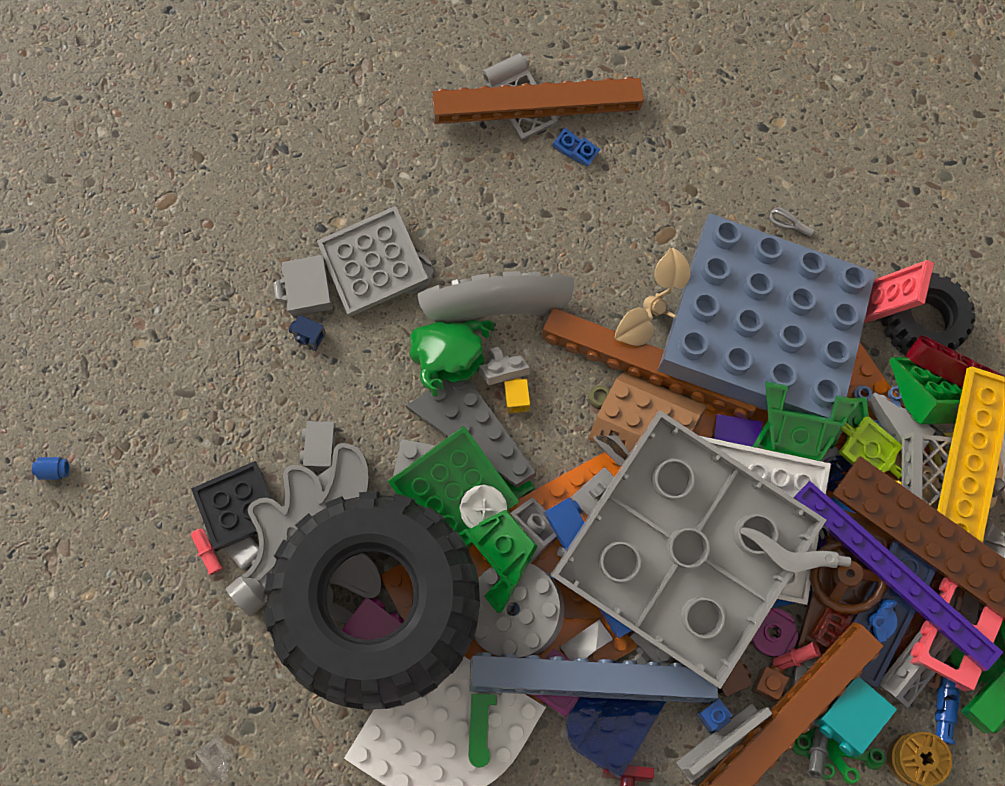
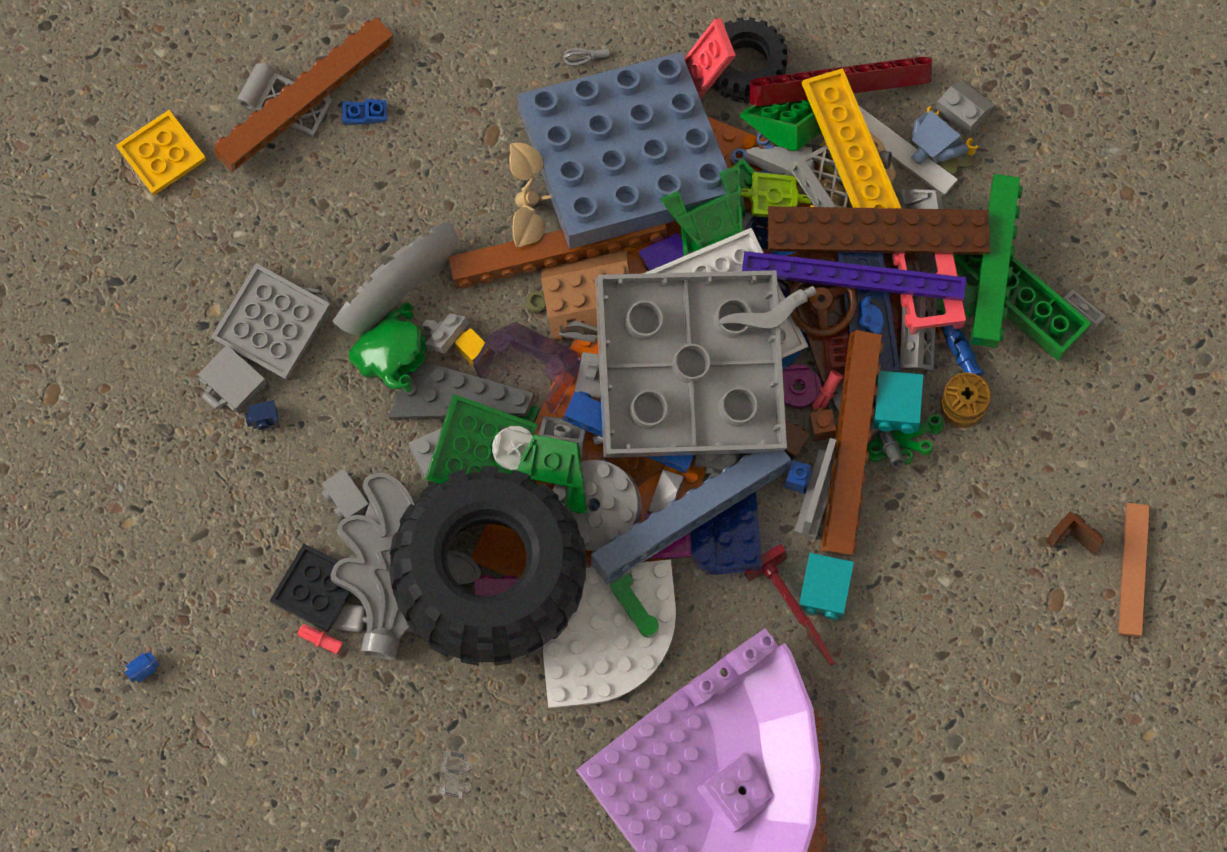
camera: 35 degrees left, 0 degrees up
(394, 73) = (161, 152): none -> yellow plate
(581, 462) = (561, 361): none -> windscreen

